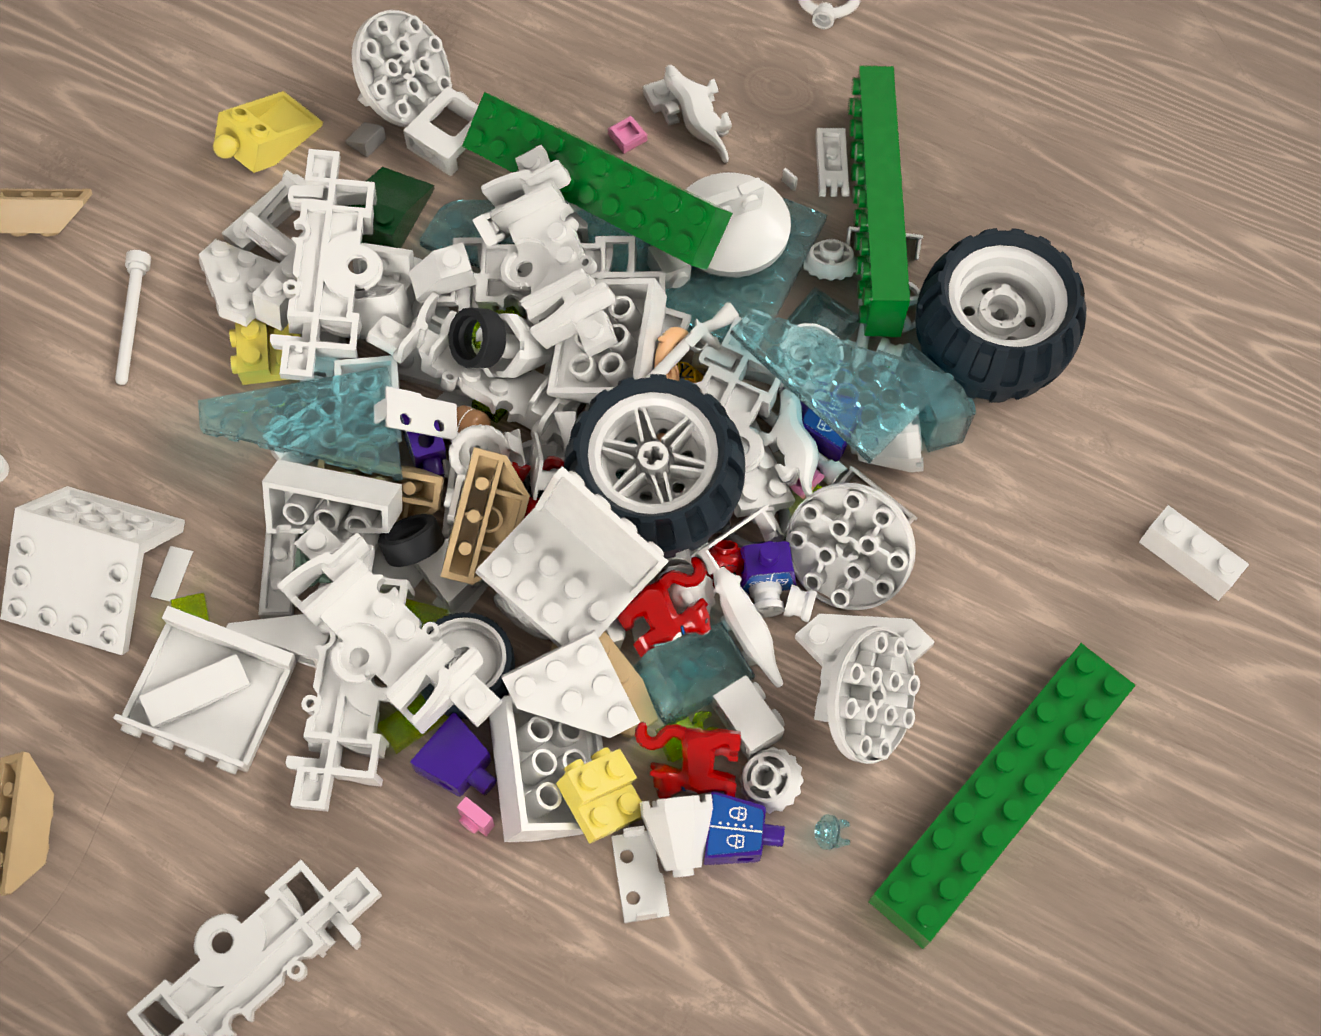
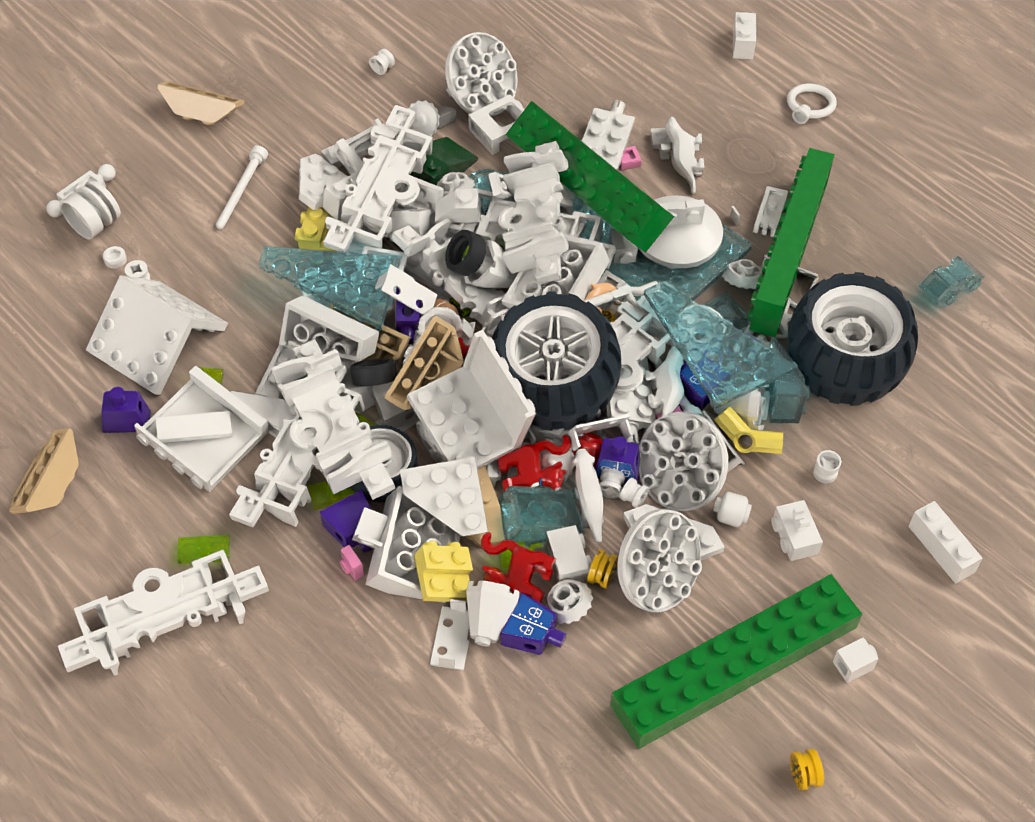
camera: 20 degrees right, 10 degrees down
(28, 475) = (137, 269): none -> white wheel
(90, 697) = (123, 410): none -> dark purple torso
(171, 573) = (207, 354): white sticker -> none
(258, 81) = (382, 61): none -> white wheel
(263, 130) = (373, 93): light yellow slope -> none
(269, 859) = (198, 547): none -> clear neon green plate
(351, 148) = (426, 118): none -> white piece
(423, 238) = (455, 181): none -> white piece
(487, 767) = (370, 528): none -> white bracket
(594, 107) = (609, 133): none -> white plate
(795, 722) = (601, 568): none -> yellow wheel
(828, 832) = (596, 649): clear light blue plate -> none
(897, 478) = (762, 440): none -> light yellow piece
(928, 588) = (732, 509): none -> white head
(1014, 592) = (796, 530): none -> white brick
(1024, 488) = (827, 466): none -> white wheel
(1081, 200) = (947, 282): none -> clear light blue brick
(1137, 912) = (807, 769): none -> yellow wheel
(1143, 744) = (855, 659): none -> white brick

